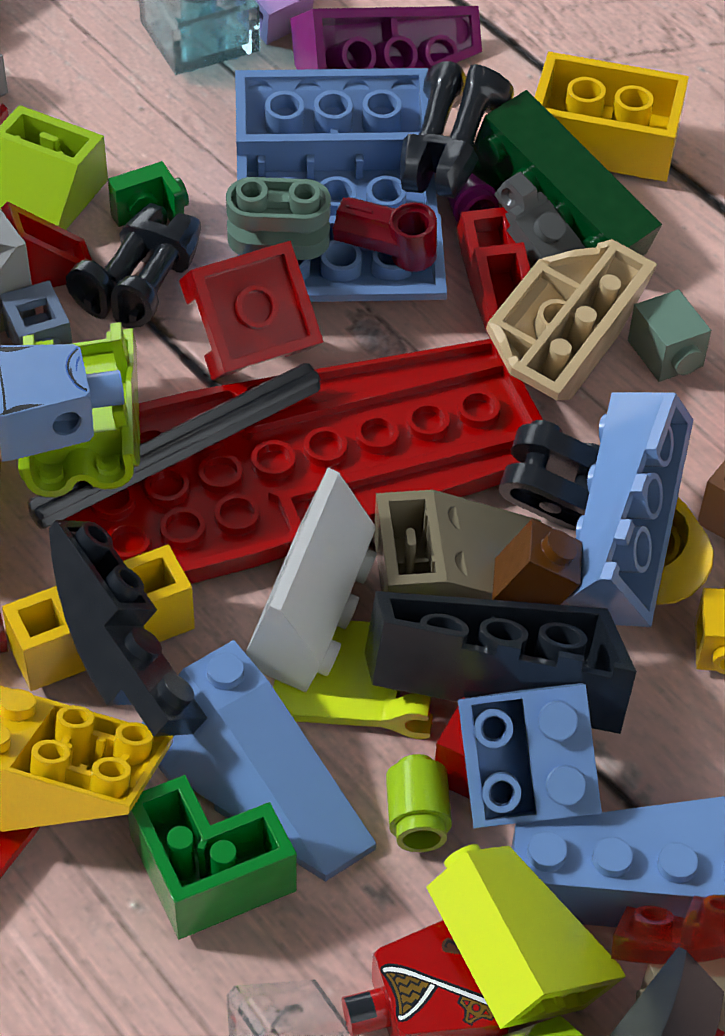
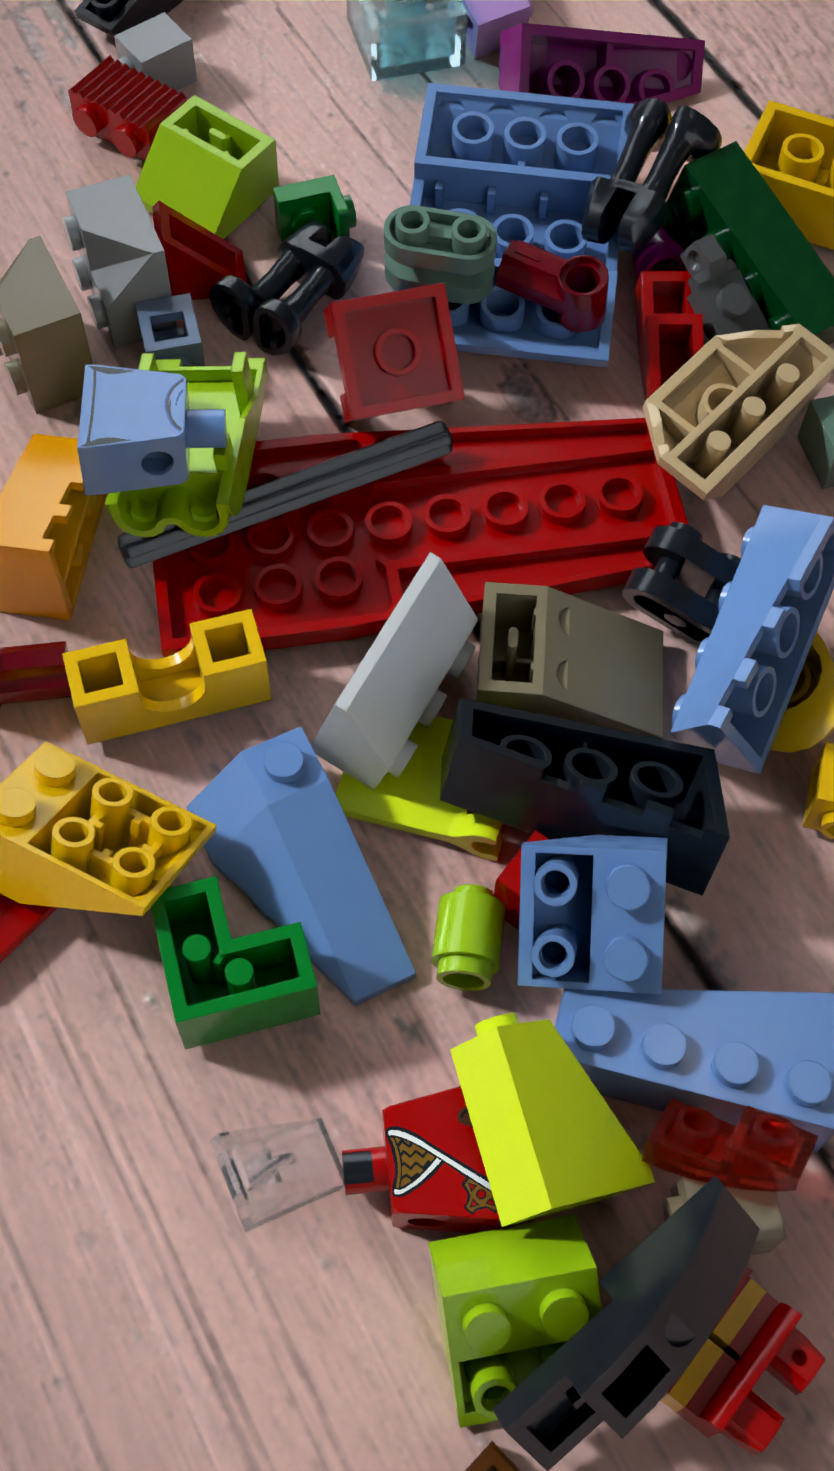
camera: 10 degrees right, 10 degrees up
(107, 619) = (166, 692): black slope -> none
(538, 566) = (645, 692): reddish brown brick -> none

